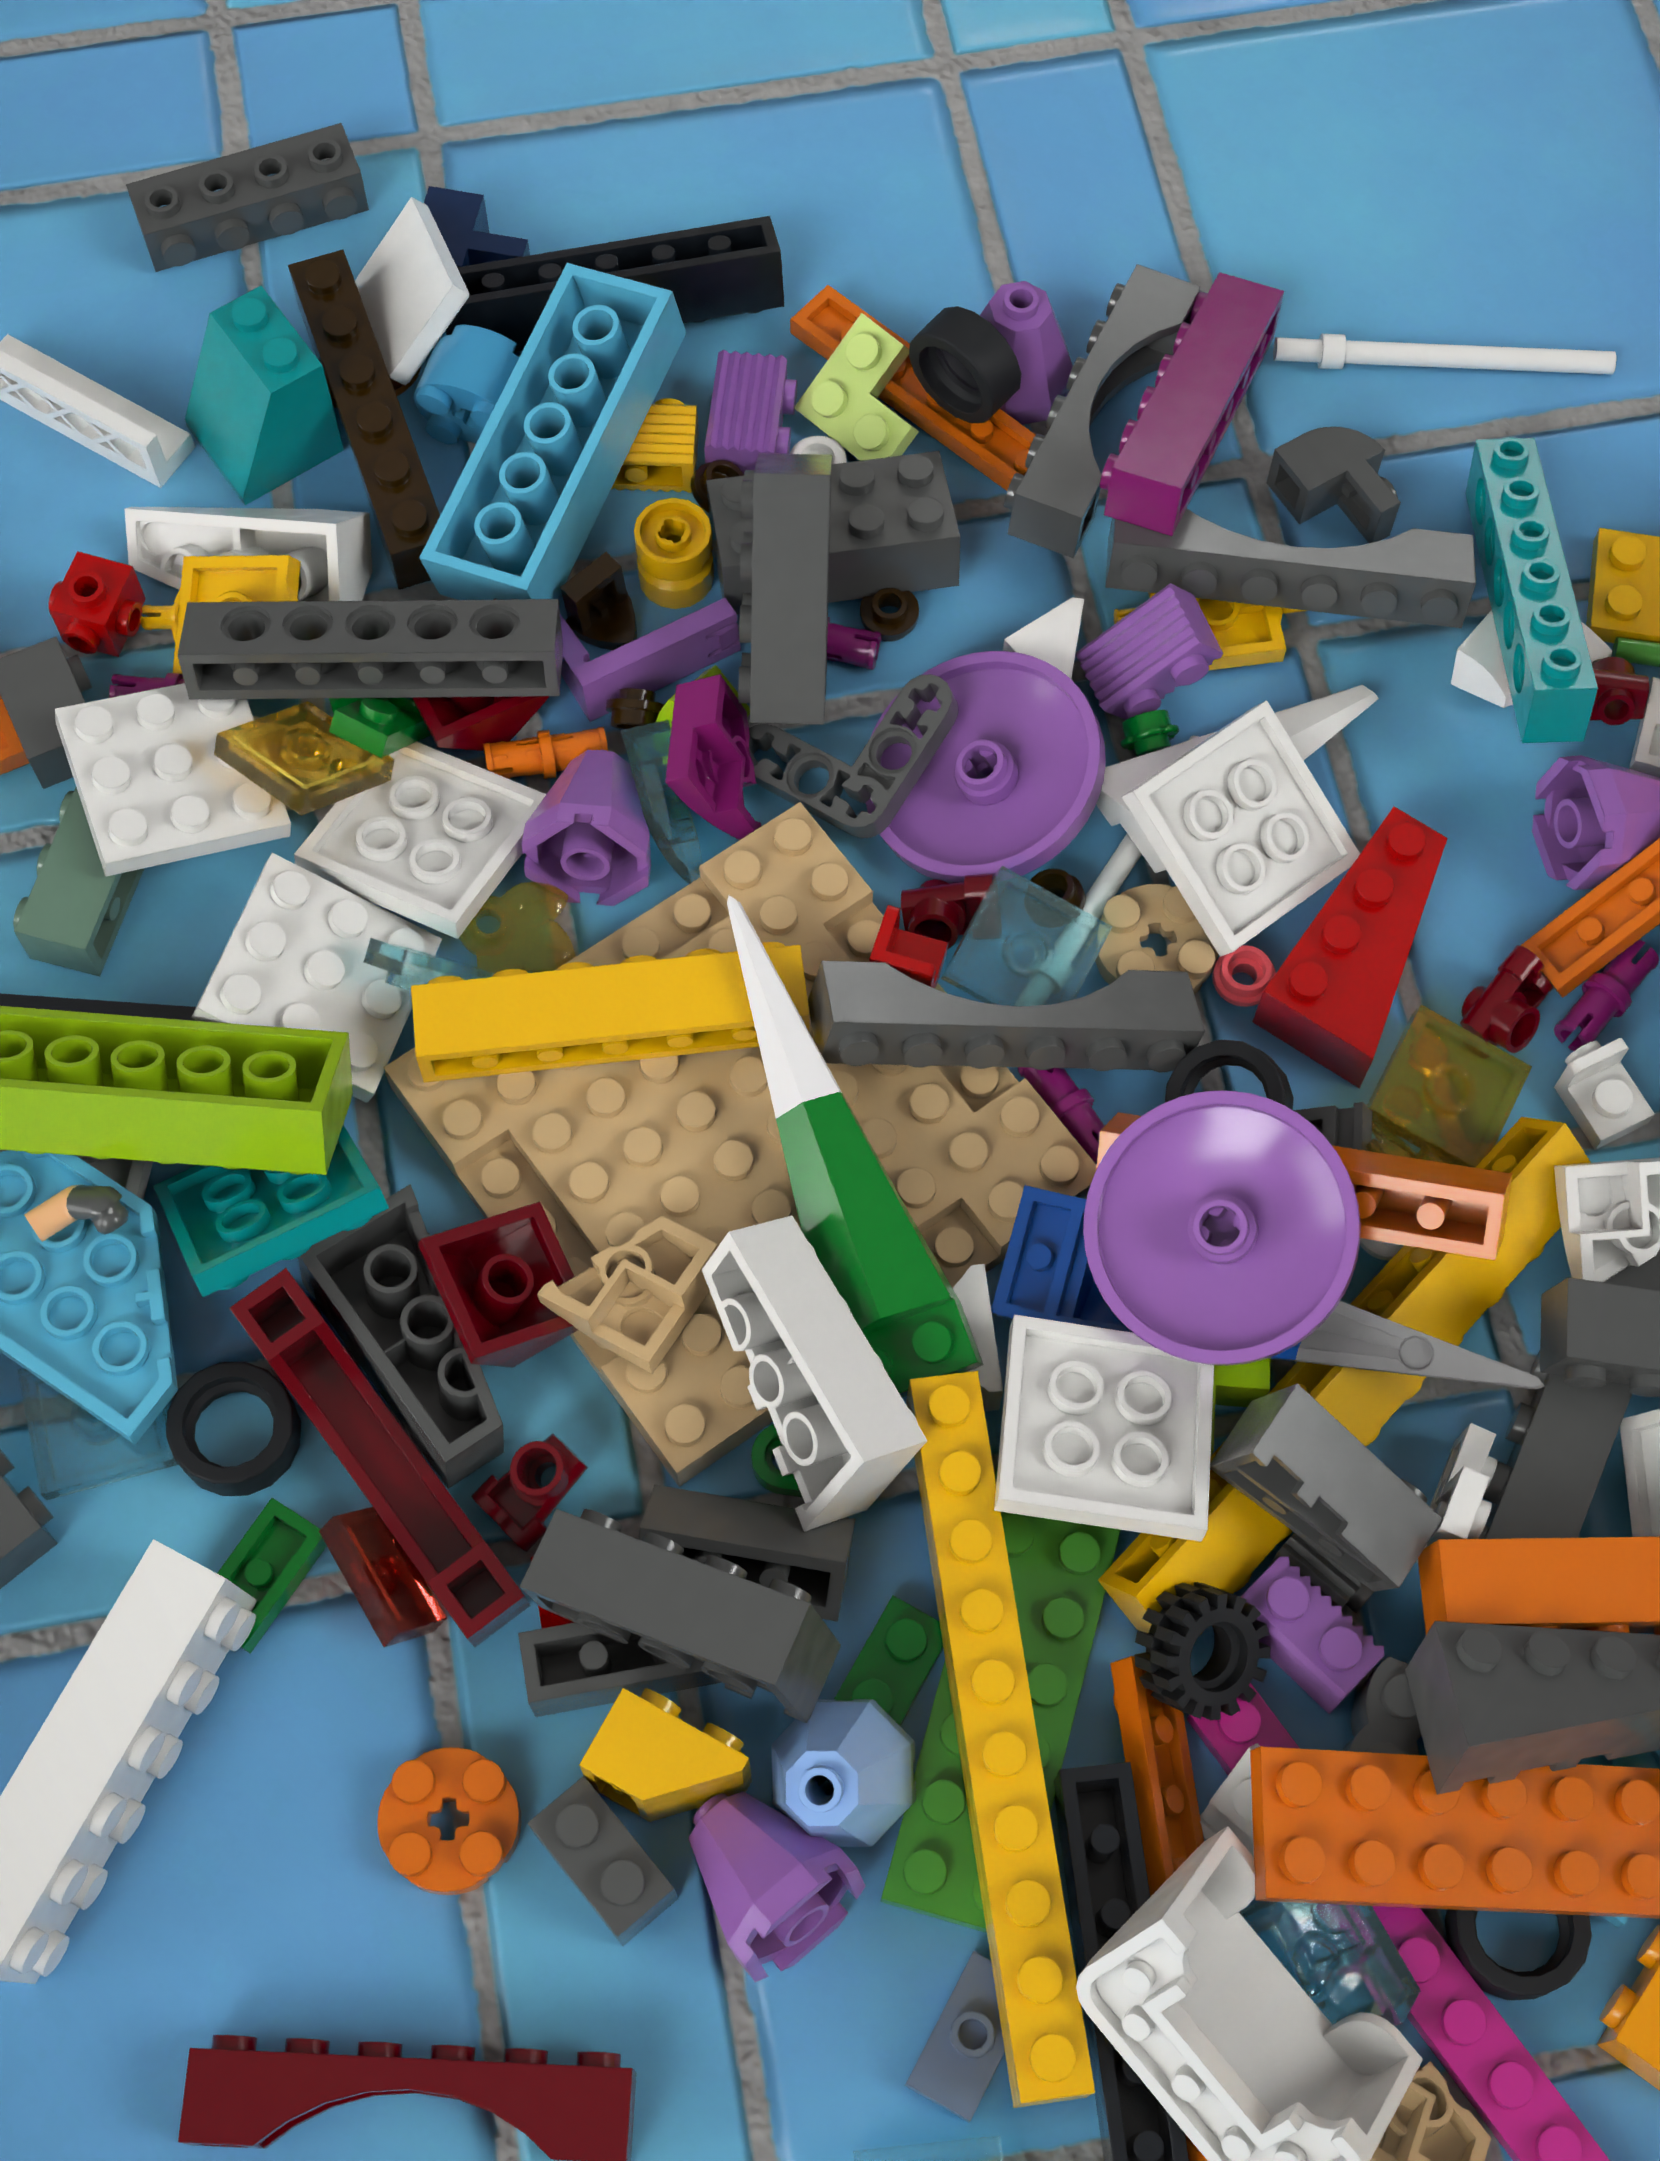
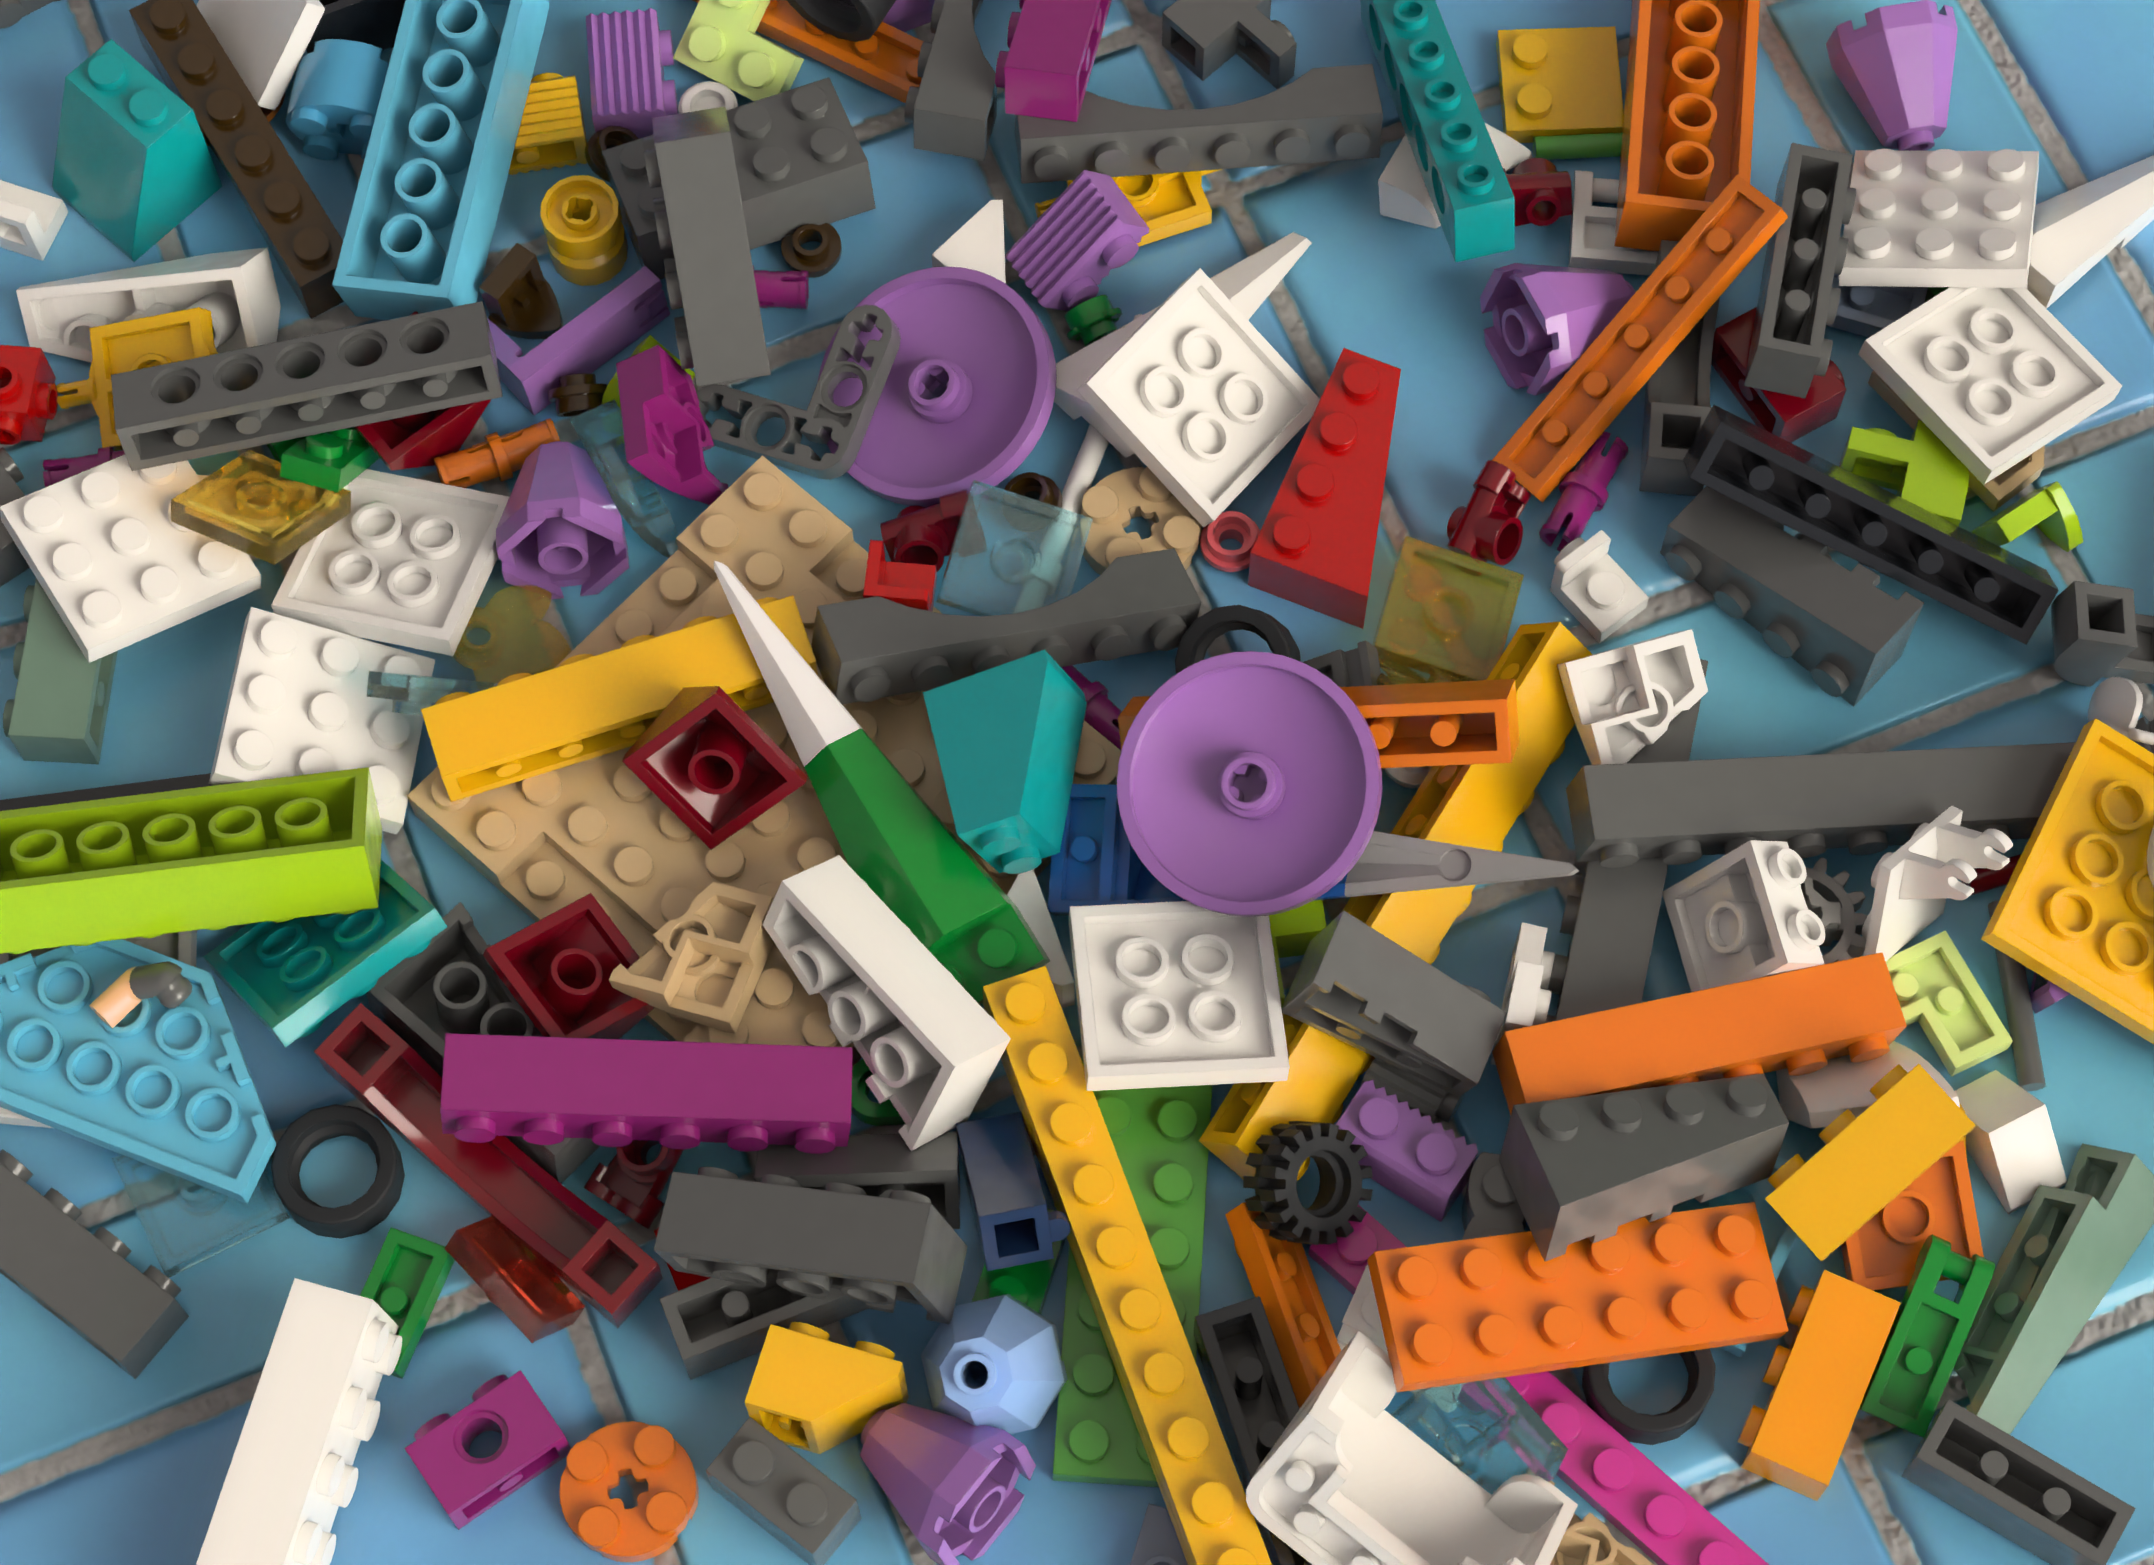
camera: 10 degrees left, 0 degrees up
(358, 1752) = (471, 1484): none -> magenta brick
(549, 1417) = (646, 1092): none -> magenta brick
(684, 1098) = (712, 764): none -> dark red slope
(893, 1596) = (1007, 1192): none -> dark blue brick
(982, 1151) = (1009, 757): none -> teal slope

